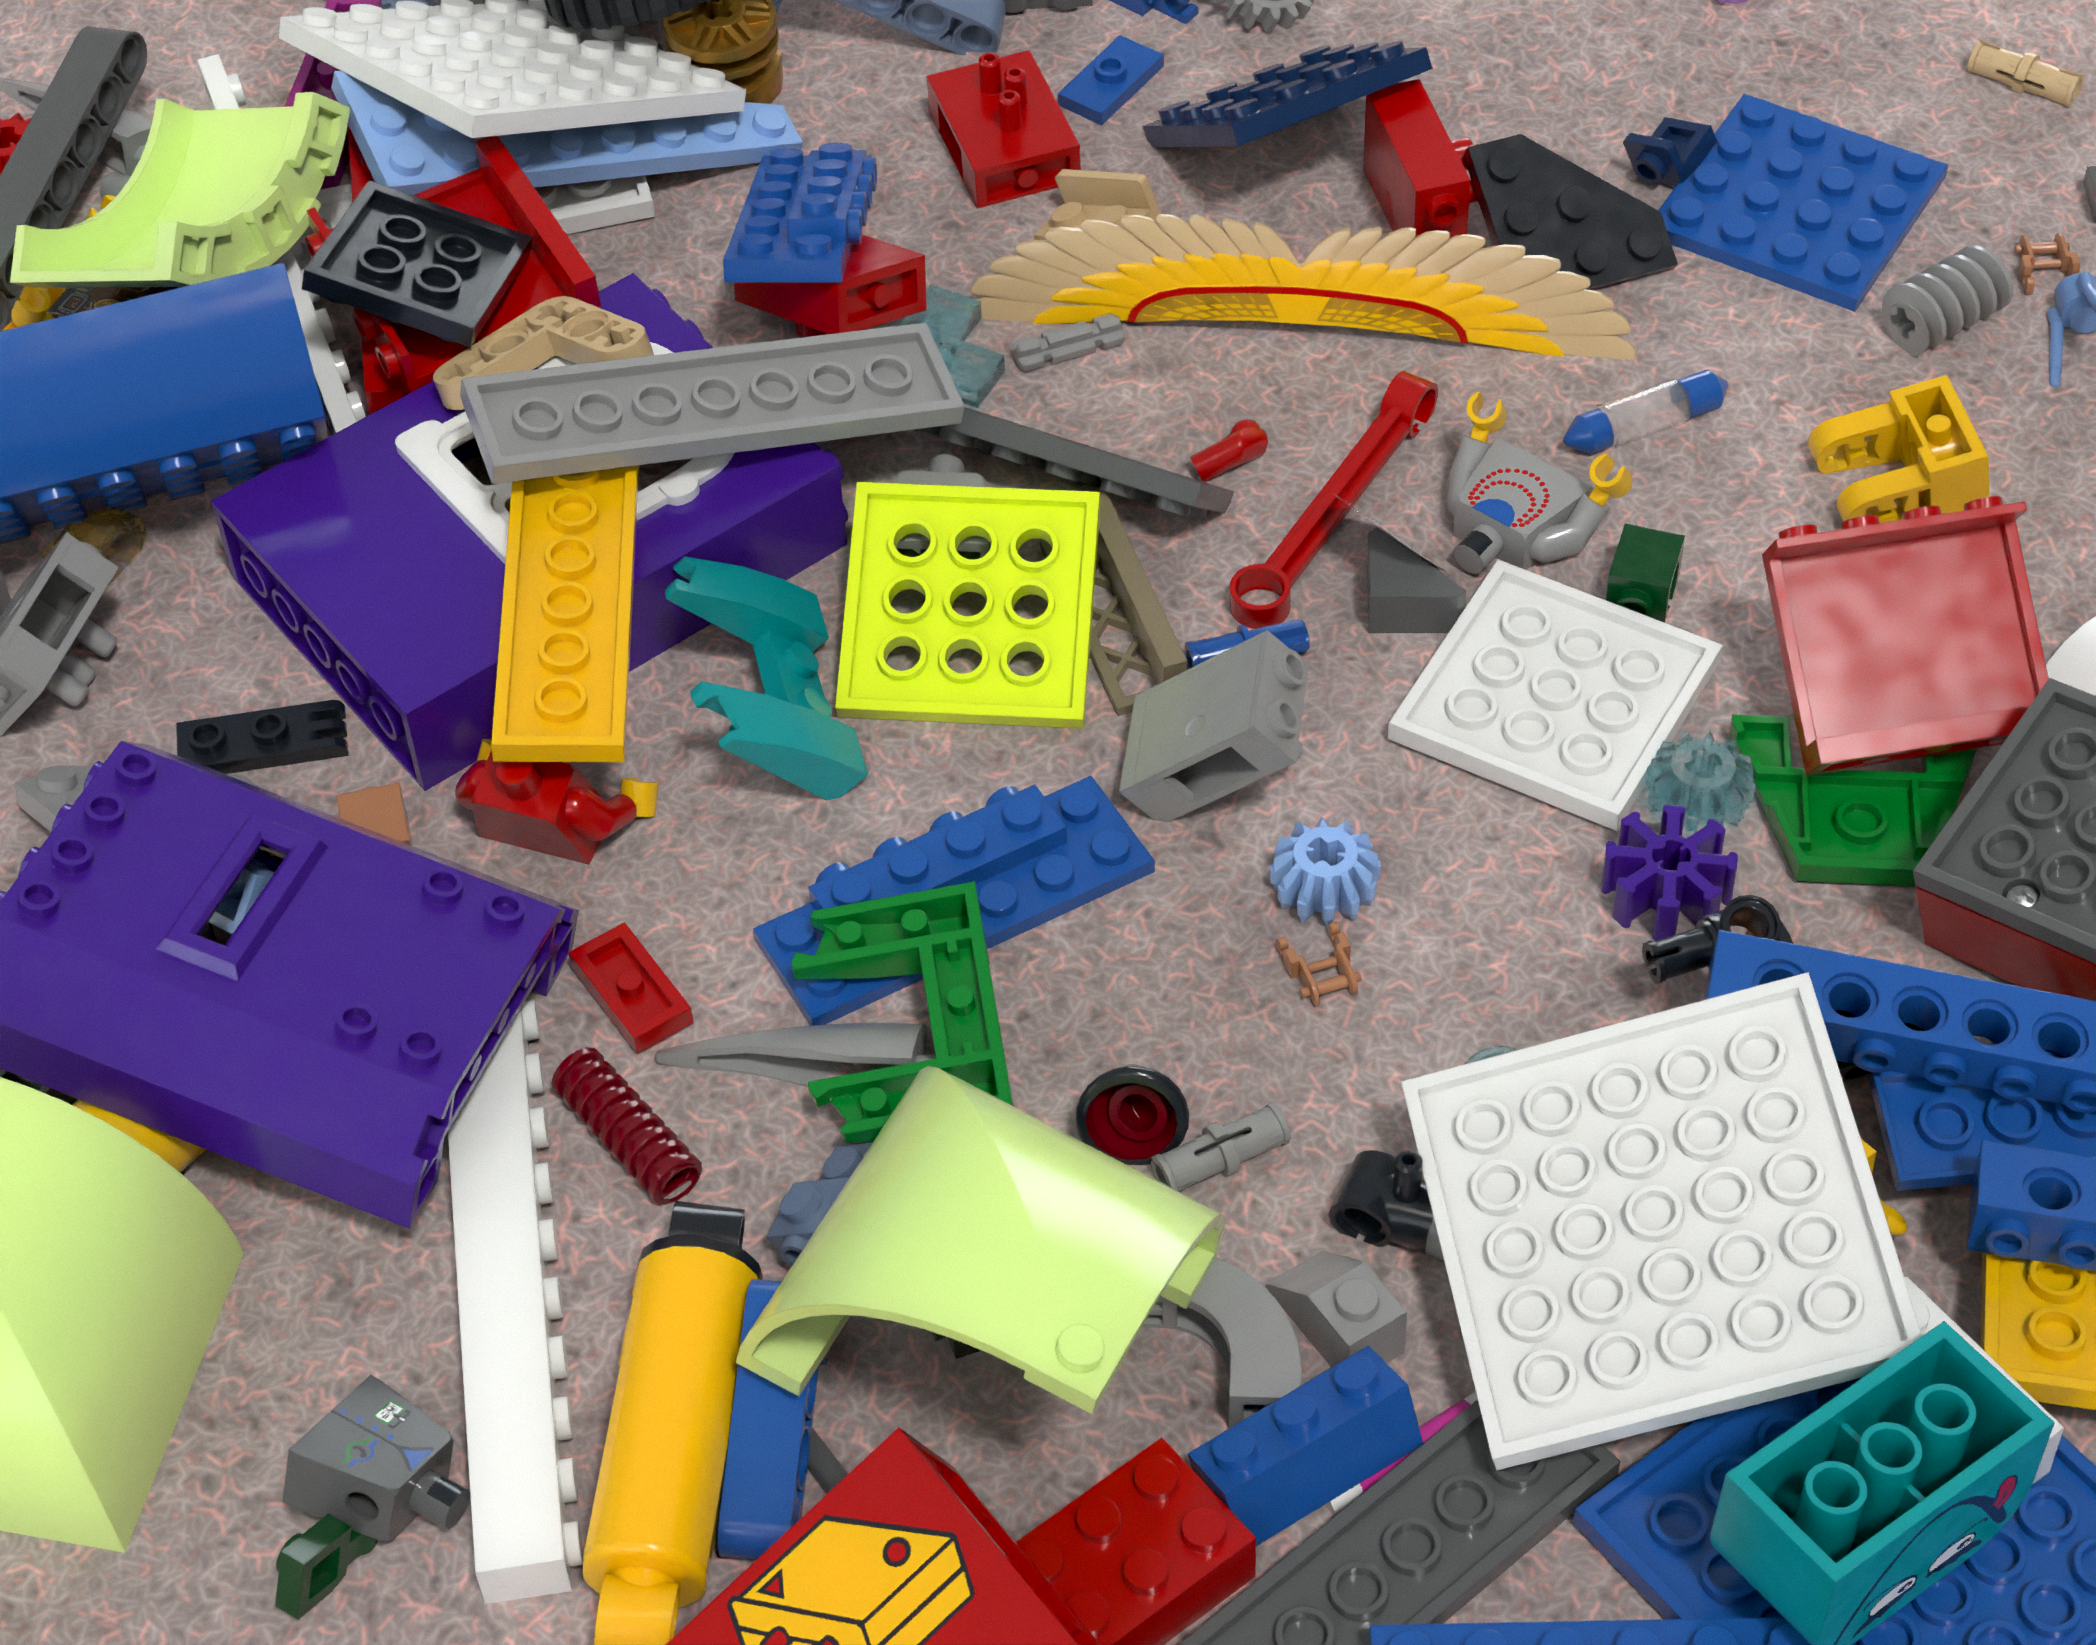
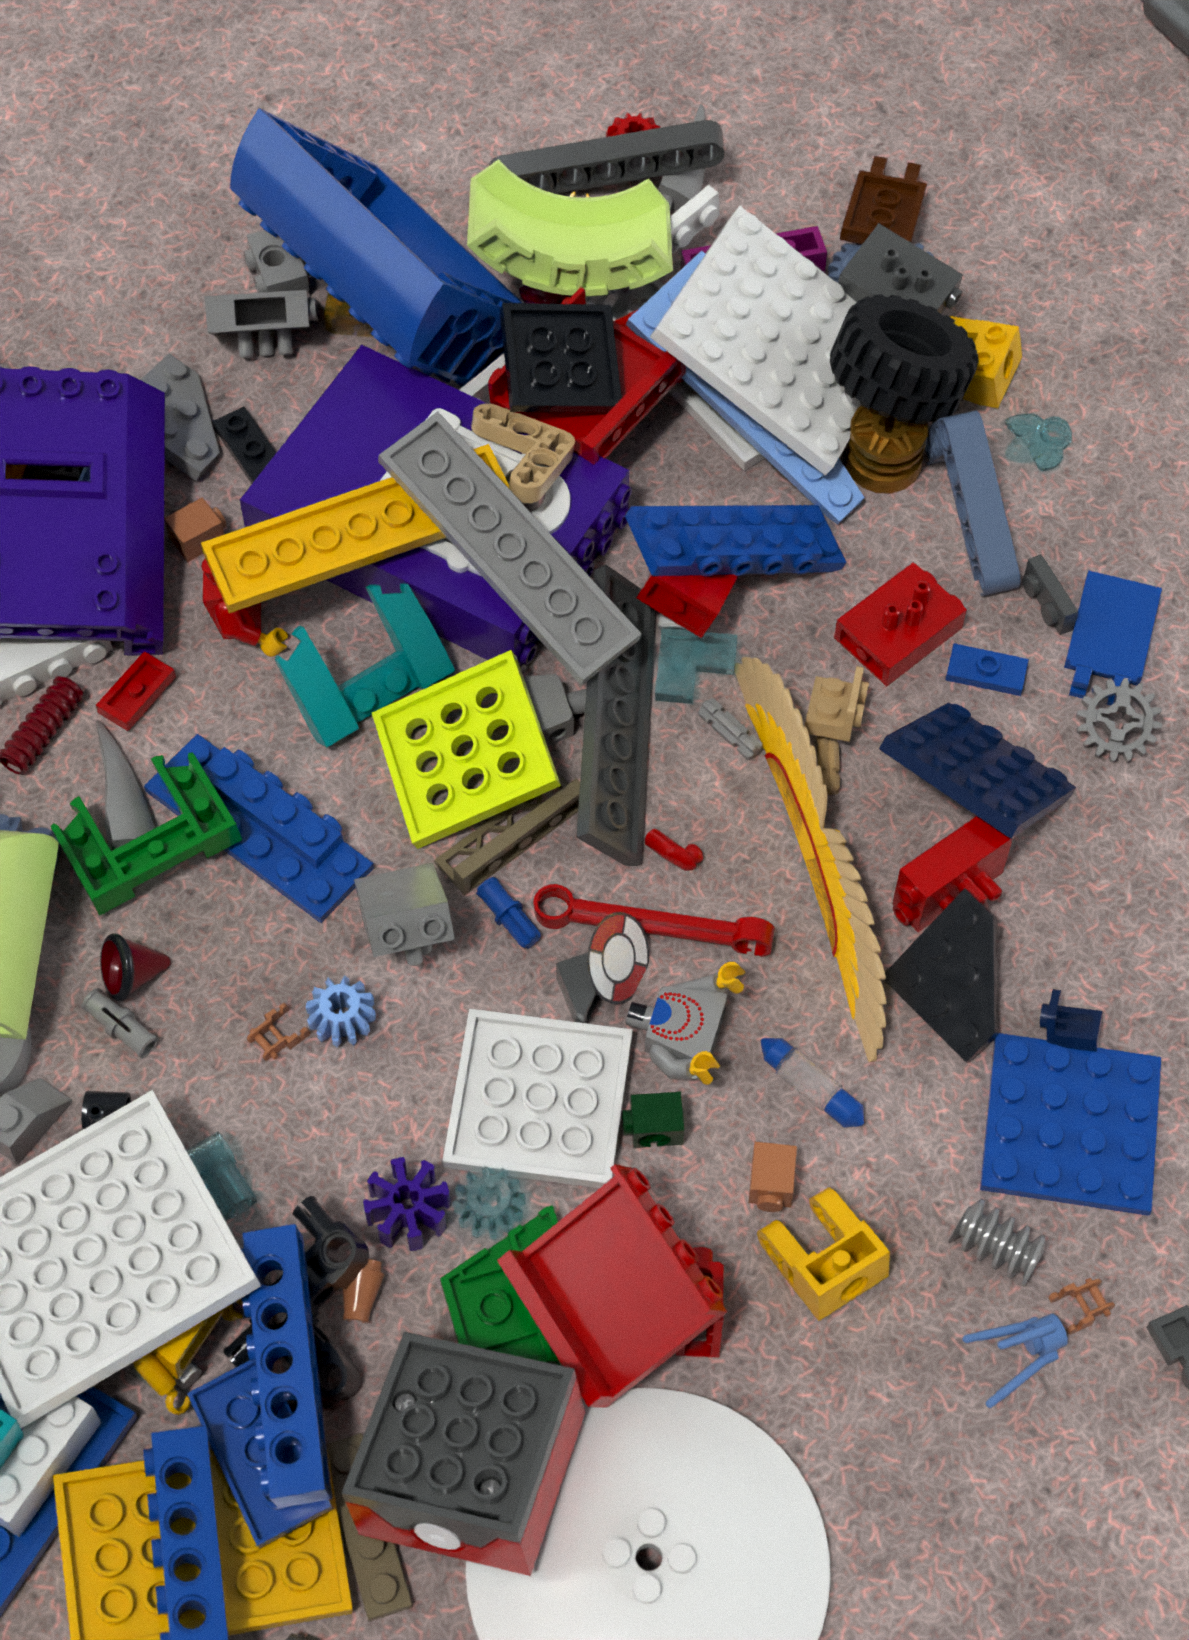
camera: 65 degrees right, 10 degrees up
(1773, 483) = (772, 1176): none -> nougat brick

